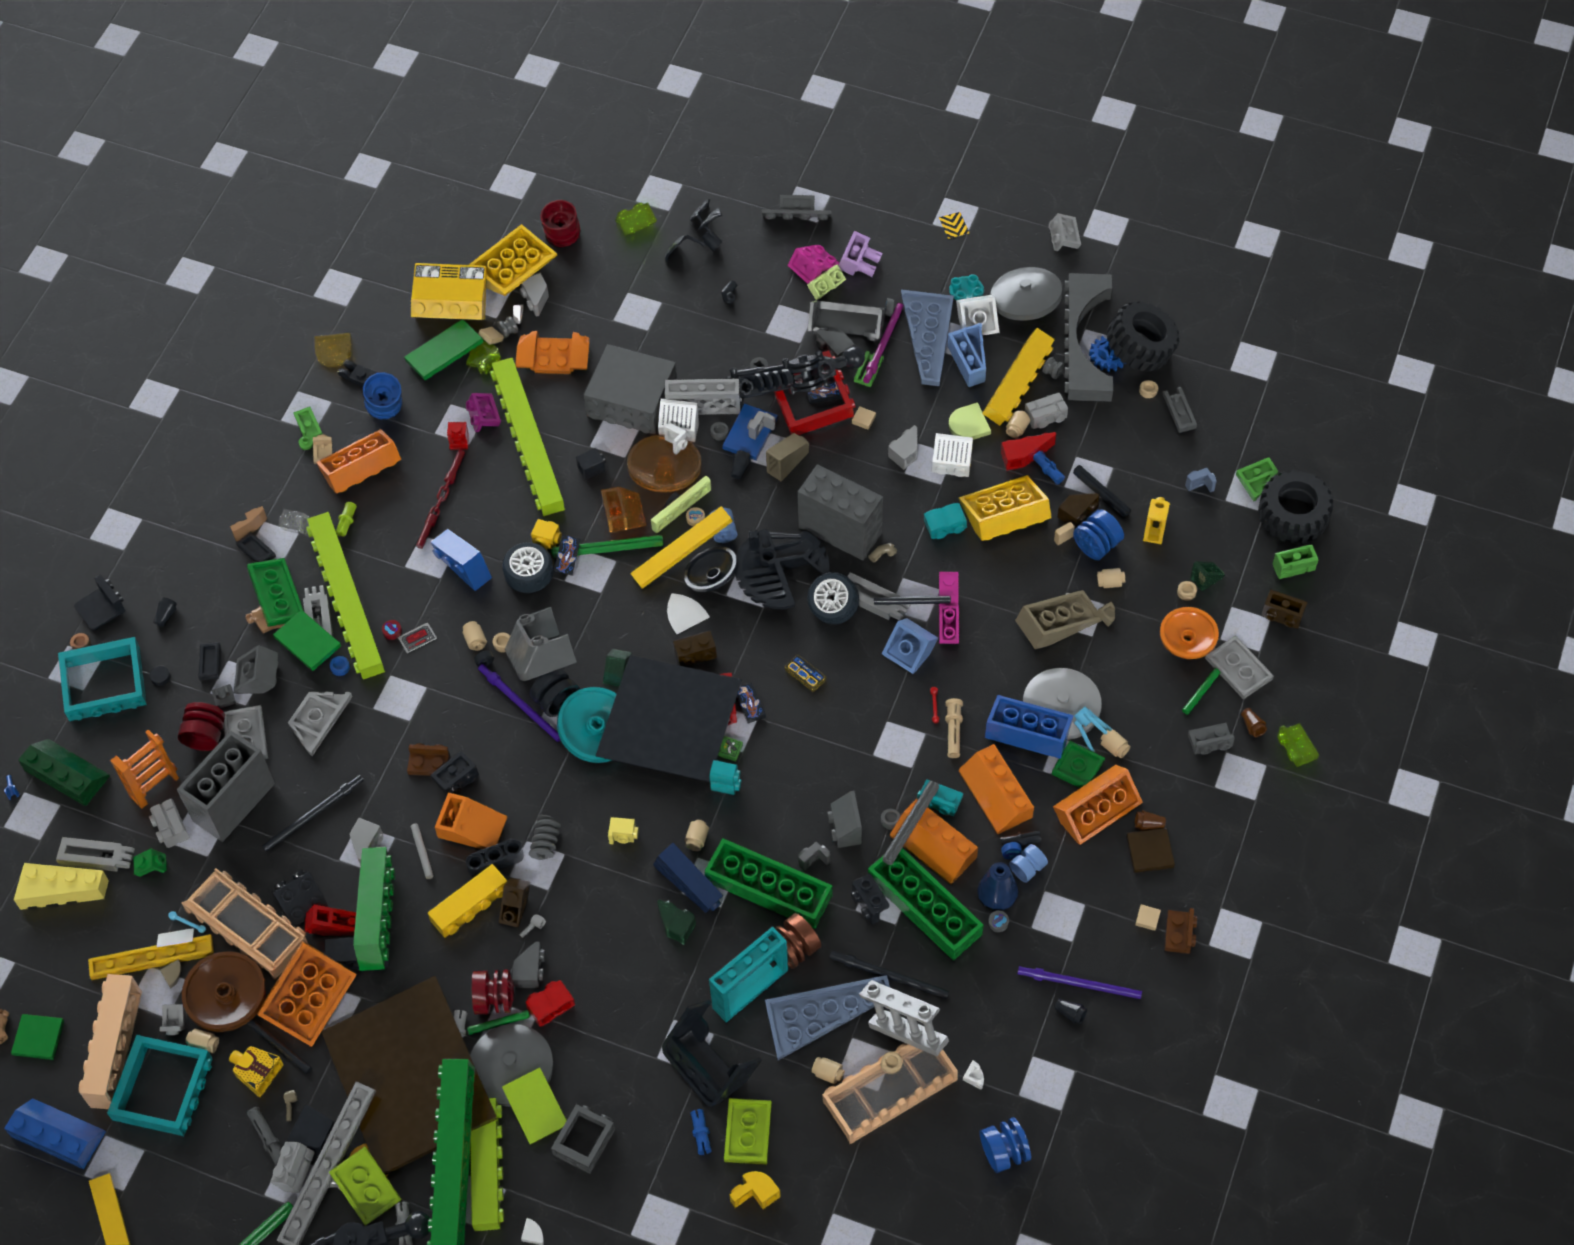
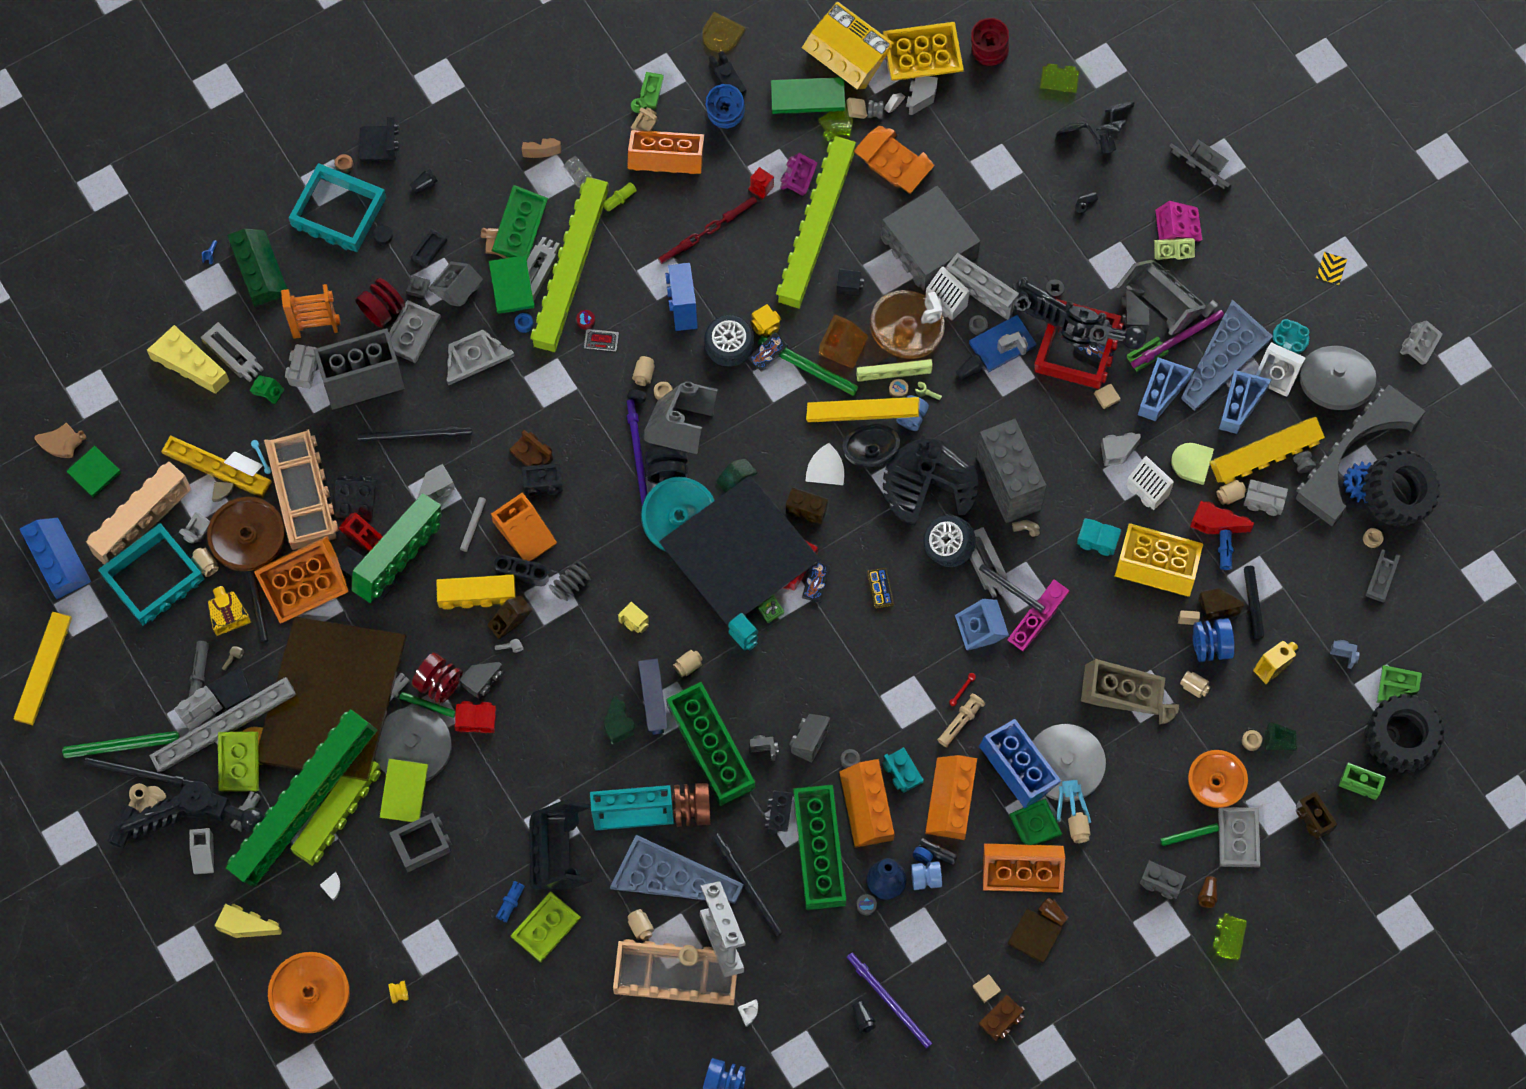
camera: 35 degrees right, 10 degrees up
(255, 548) = (532, 174): black tile -> none
(713, 501) = (925, 391): none -> yellowish green hand
(756, 1185) = (517, 973): yellow brick -> none
(786, 455) = (1013, 386): dark tan slope -> none
(855, 250) = (1223, 235): lavender brick -> none
(901, 381) = (1163, 387): none -> medium blue wedge
(910, 823) = (855, 776): dark grey axle -> none

